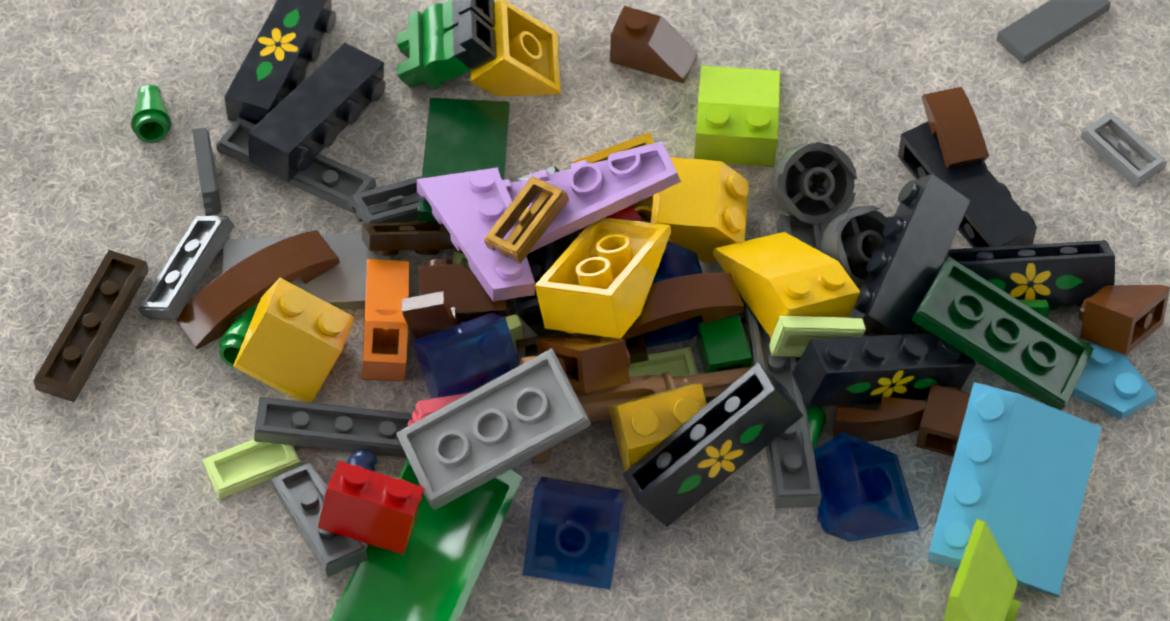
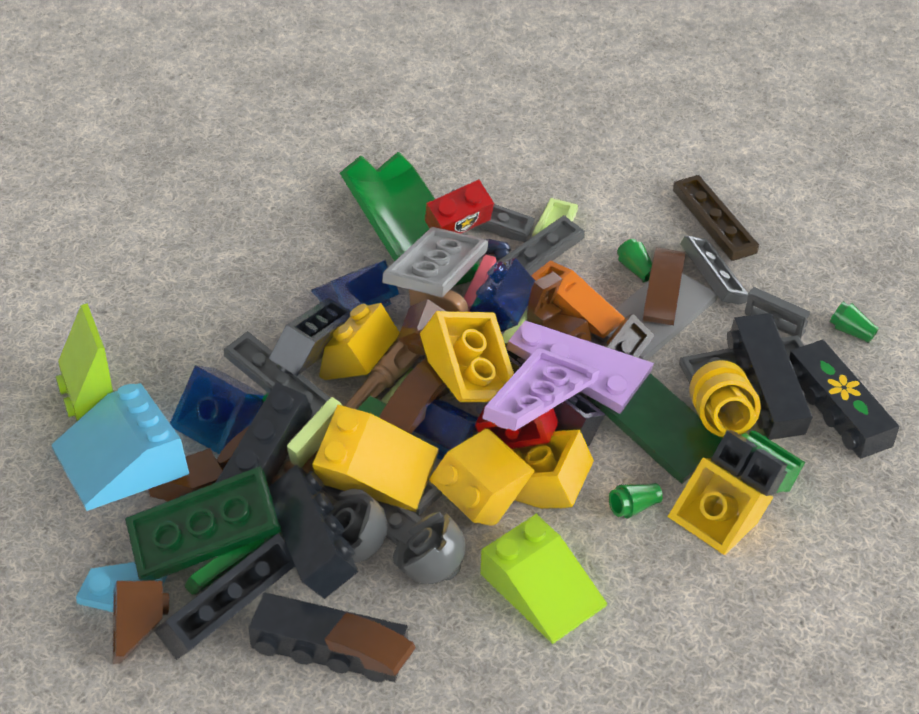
camera: 135 degrees right, 10 degrees down
(293, 341) = (608, 262): yellow slope -> none
(395, 211) = (666, 348): dark grey tile -> none
(408, 95) = (724, 398): none -> yellow piece
(532, 220) = (543, 353): pearl gold tile -> none
(575, 115) = (634, 498): none -> green cone
(650, 45) = (648, 576): reddish brown slope -> none

